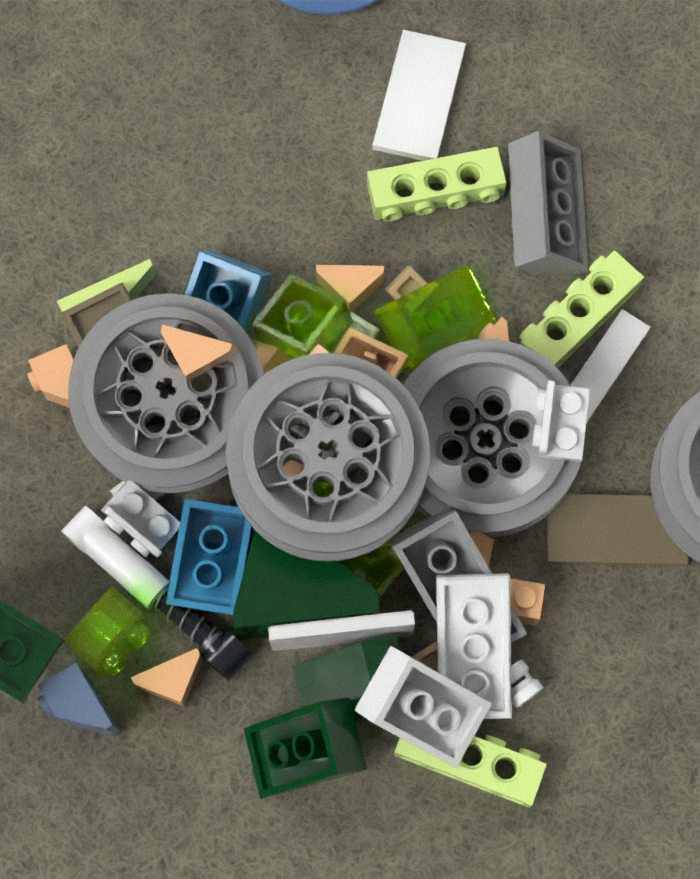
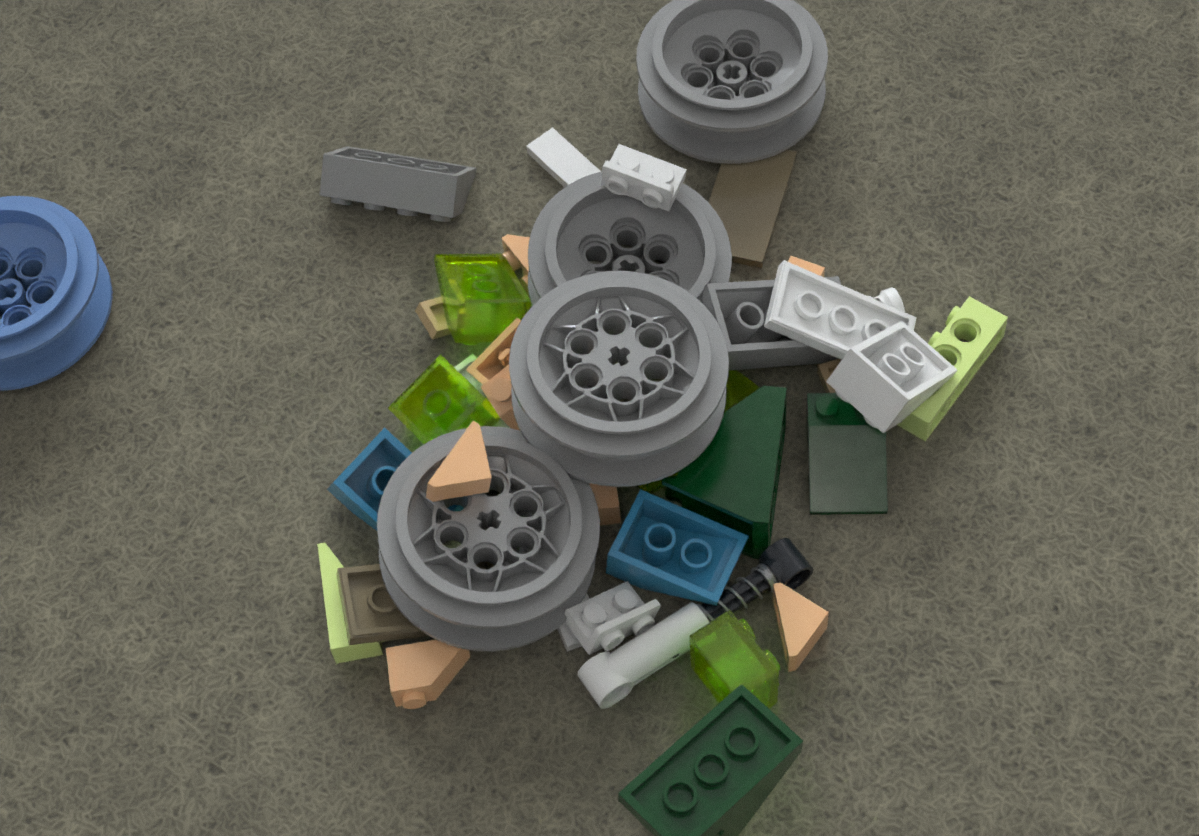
camera: 70 degrees left, 15 degrees down
(76, 702) = (810, 708): sand blue slope -> none
(305, 747) = (905, 508): dark green slope -> none
(340, 630) = (790, 444): white tile -> none
(350, 282) = (411, 362): light nougat slope -> none
(419, 96) = (232, 267): white tile -> none
(448, 171) = (337, 245): yellowish green brick -> none
(614, 274) = (512, 168): yellowish green brick -> none

